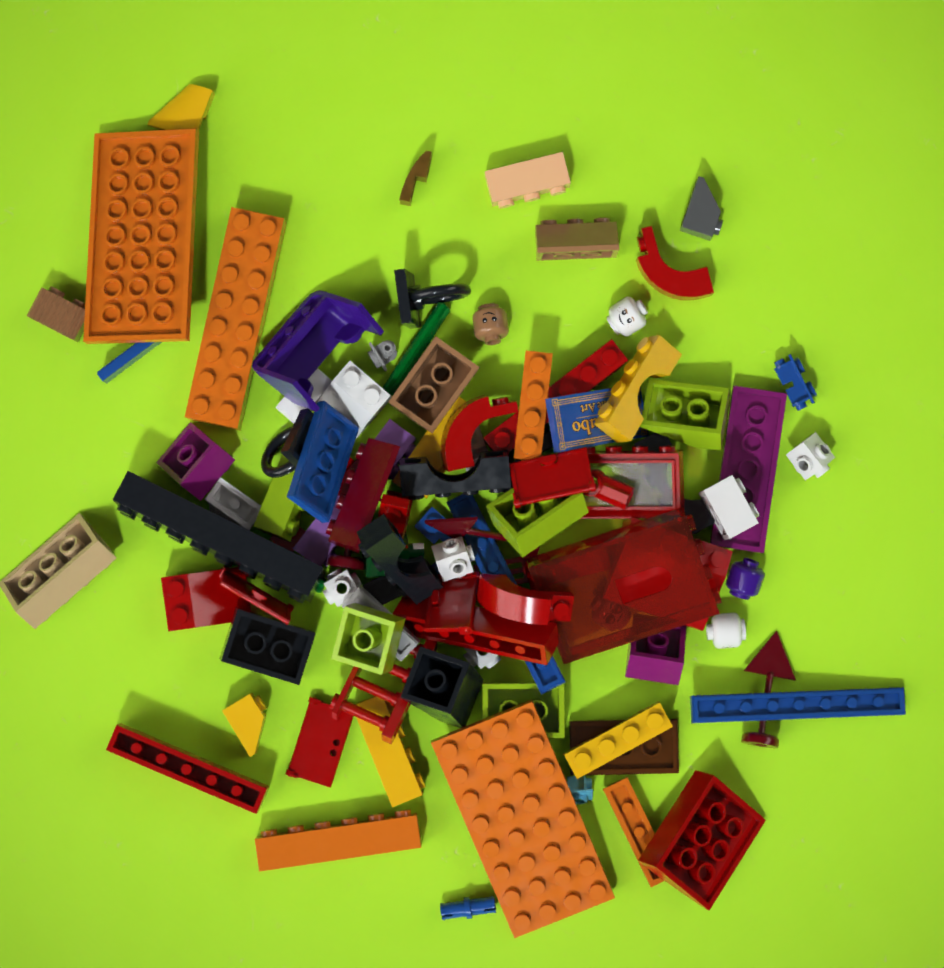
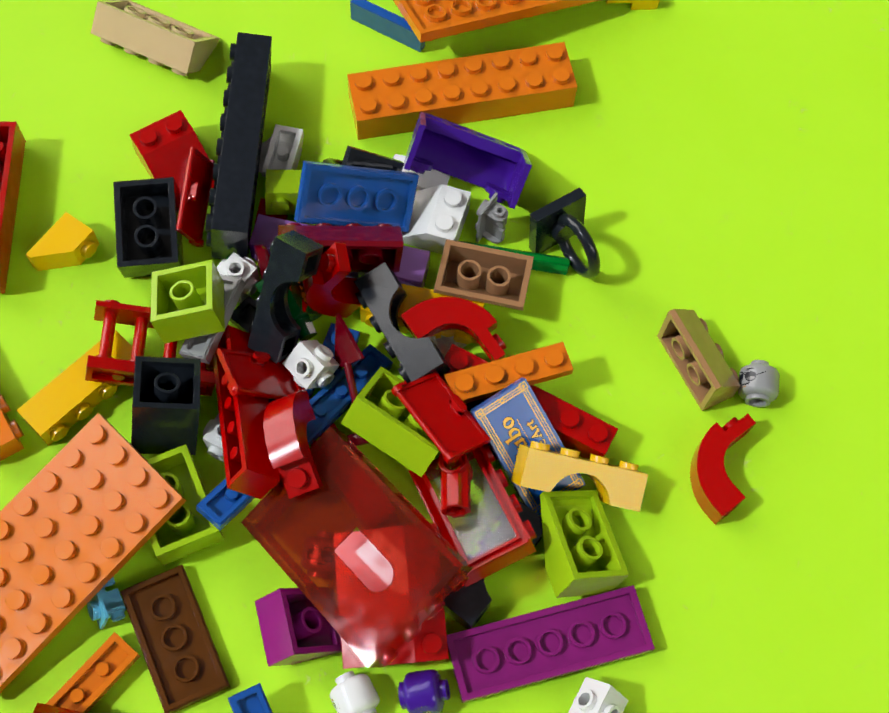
camera: 60 degrees right, 20 degrees down
(195, 461) = (308, 108): magenta slope -> none
(316, 741) = (49, 320): red door -> none
(418, 173) = (683, 190): pearl gold slope -> none
(490, 324) = (572, 312): medium nougat head -> none
(527, 180) = (732, 290): light nougat brick -> none
(617, 203) = (758, 383): none -> light grey head
(618, 740) = (177, 620): yellow arch -> none
(627, 316) = (649, 441): white head -> none
(702, 213) = (795, 472): dark grey slope -> none
(729, 507) = (495, 627): white brick -> none
(792, 371) = (665, 665): blue hinge -> none

